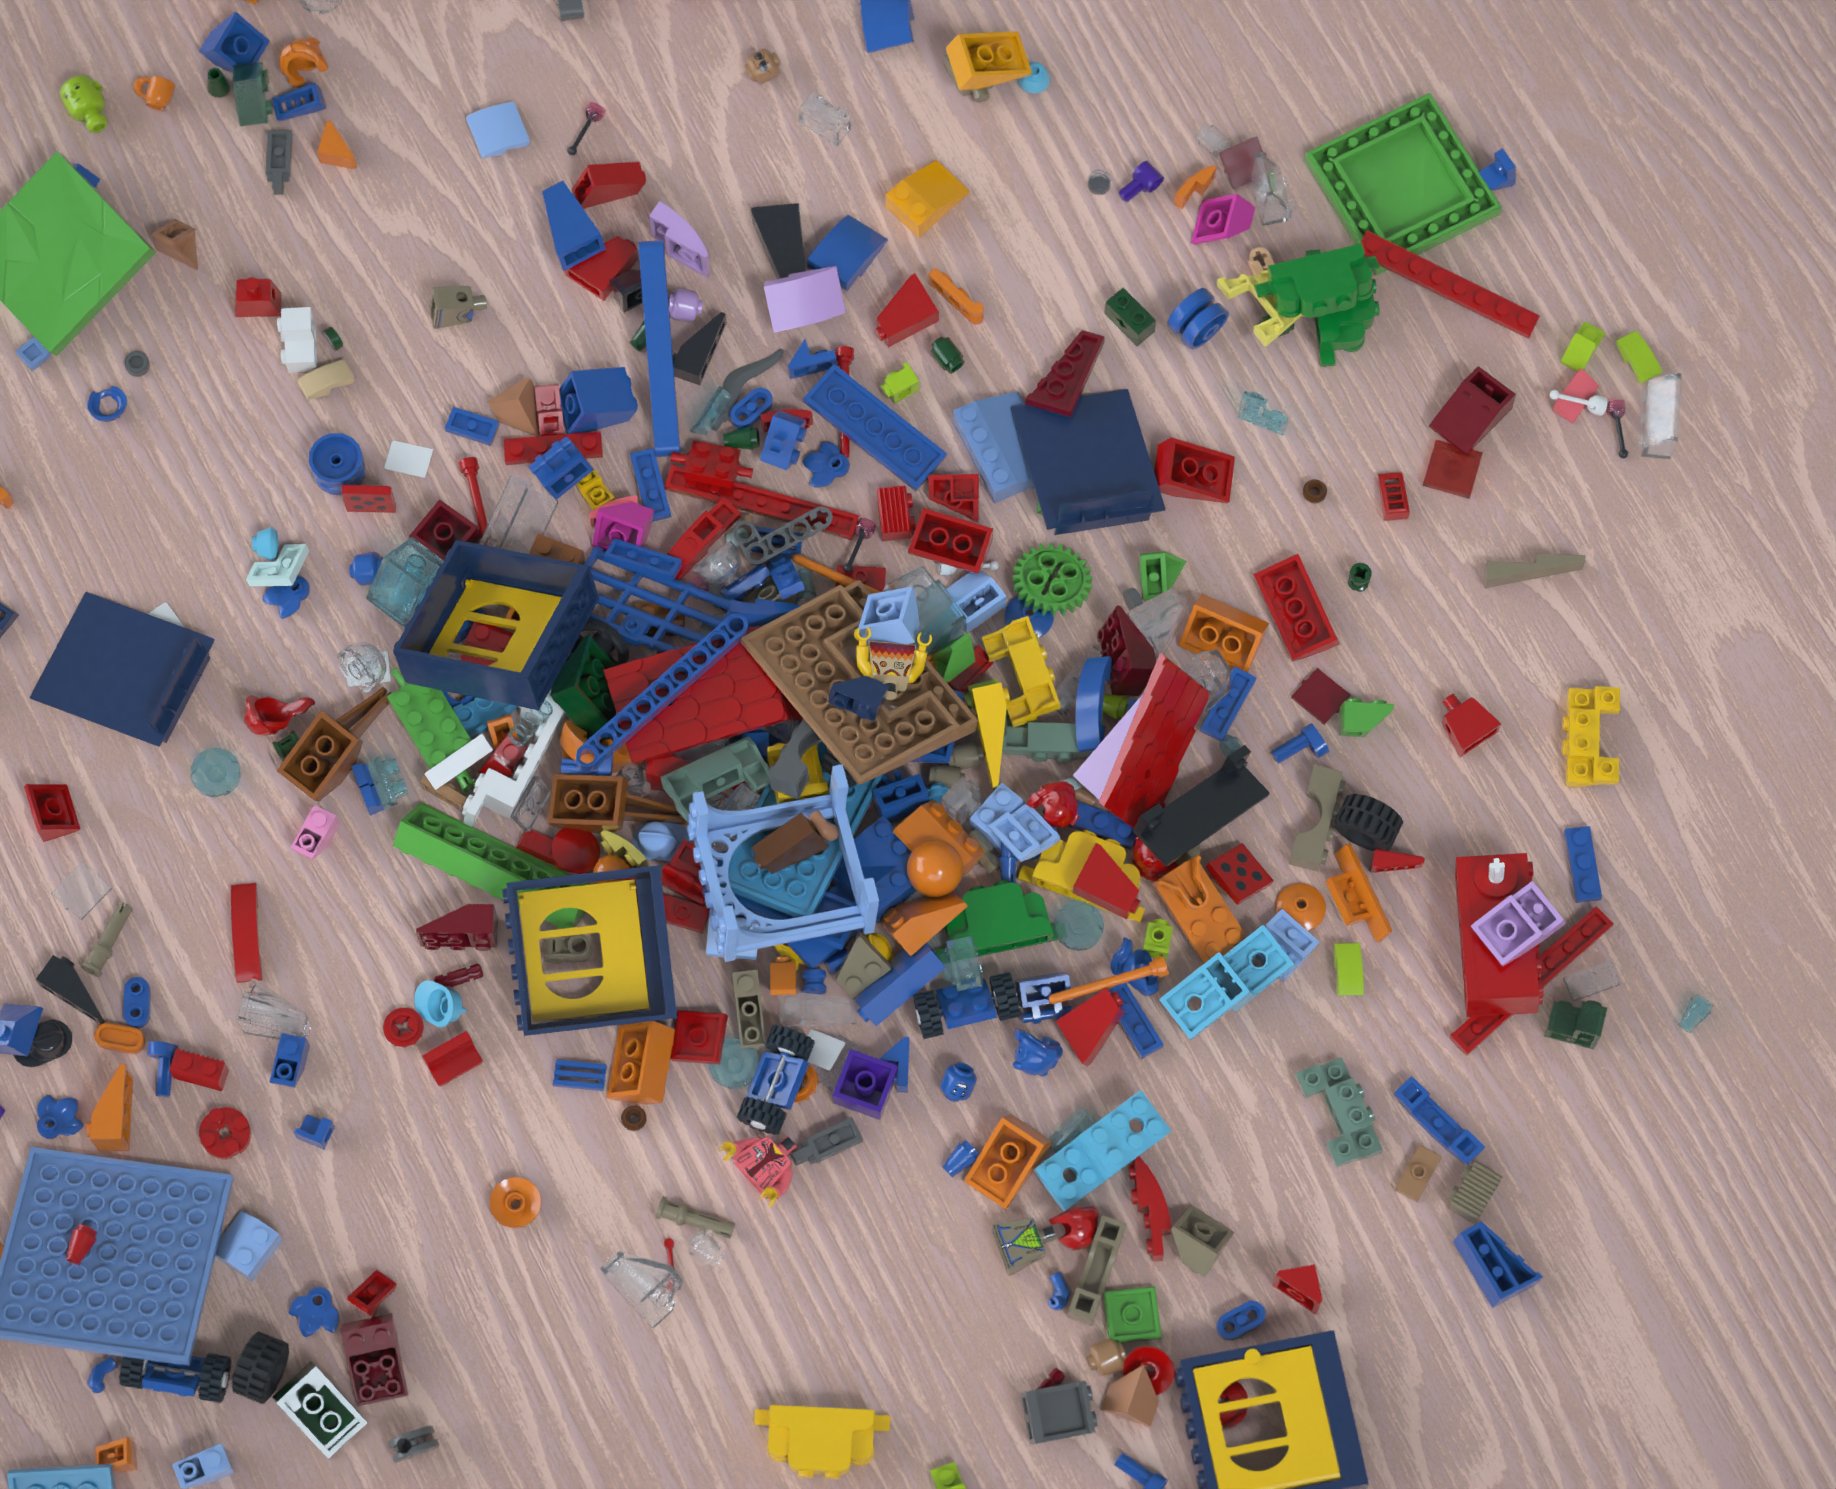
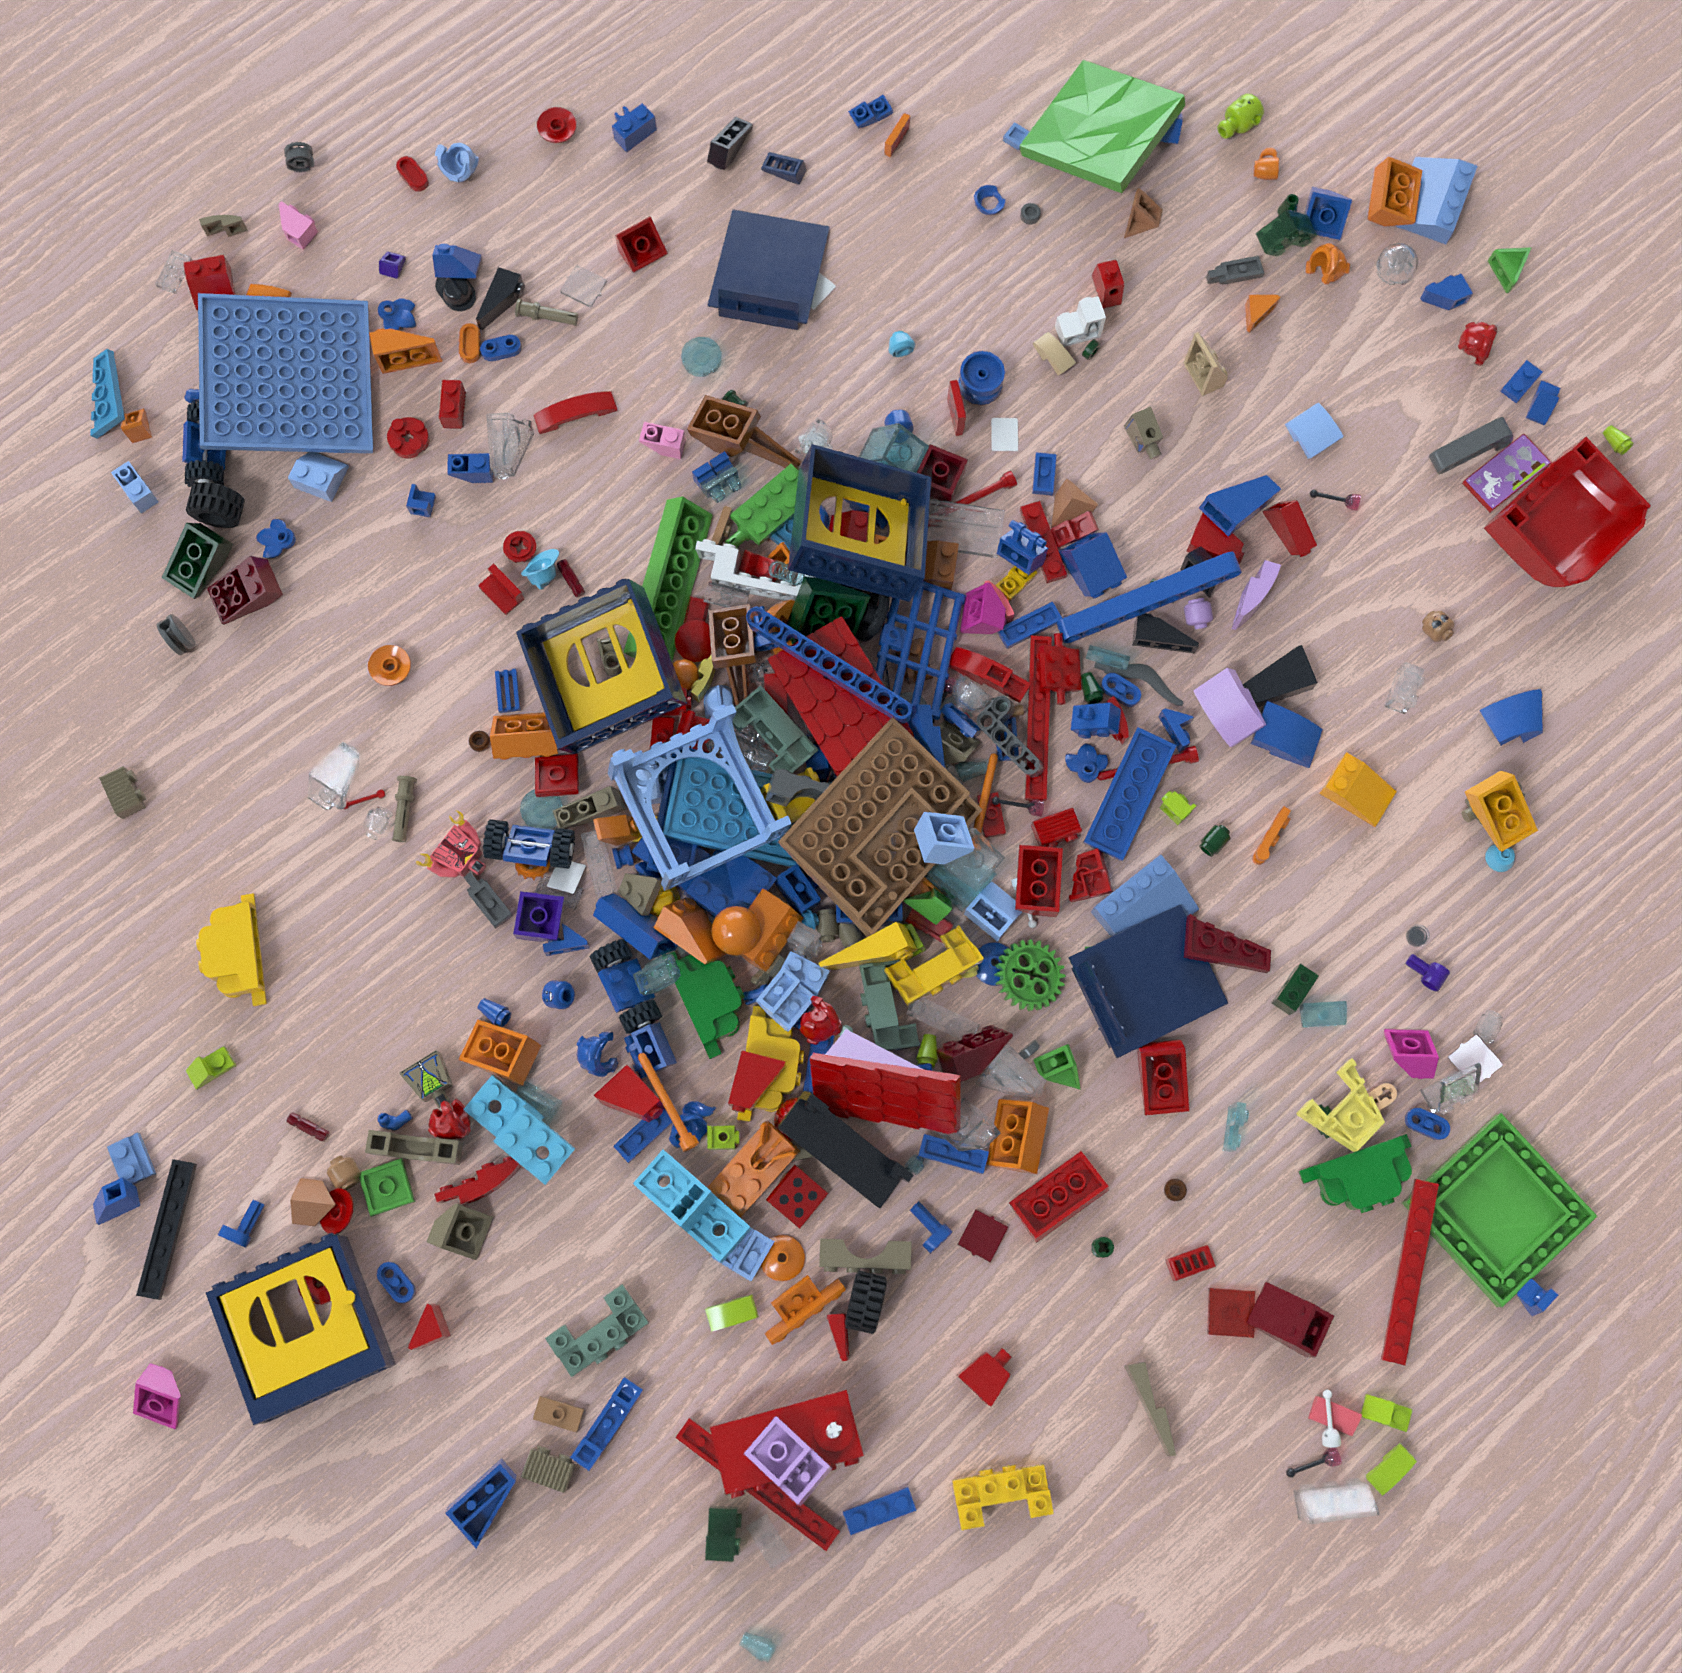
camera: 75 degrees right, 5 degrees up
(80, 1243) = (285, 347): red cone -> none
(165, 1053) = (460, 373): blue piece -> none
(270, 715) = (757, 382): red piece -> none
(281, 572) = (879, 361): light aqua plate -> none
(286, 597) = (863, 371): blue plate -> none
(308, 108) = (1298, 285): blue slope -> none
(372, 1293) = (291, 573): red slope -> none
(393, 223) = (1204, 366): none -> tan slope
(458, 761) = (745, 529): white sticker -> none
(465, 927) = (604, 564): dark red slope -> none
(643, 560) = (957, 632): blue plate -> none
(785, 575) = (971, 748): blue plate -> none
(789, 845) = (724, 803): reddish brown slope -> none
(826, 829) = (746, 828): nougat arm -> none
(860, 696) = (860, 826): dark blue slope -> none
(891, 662) = (901, 847): torso -> none
(906, 313) = (1243, 796): red slope -> none
(1058, 1412) = (286, 1141): dark grey panel -> none
(1078, 925) = (719, 1066): clear light blue tile -> none
(1090, 703) = (918, 1028): blue slope -> none
(1162, 296) = (1323, 1014): none -> clear light blue slope
(1198, 318) = (1308, 1048): blue wheel -> none
(1199, 183) = (1443, 1023): orange slope -> none
(1300, 229) = (1426, 1123): none -> blue plate
(1320, 282) = (1372, 1152): green brick -> none
(1360, 718) = (967, 1277): bright green slope -> none

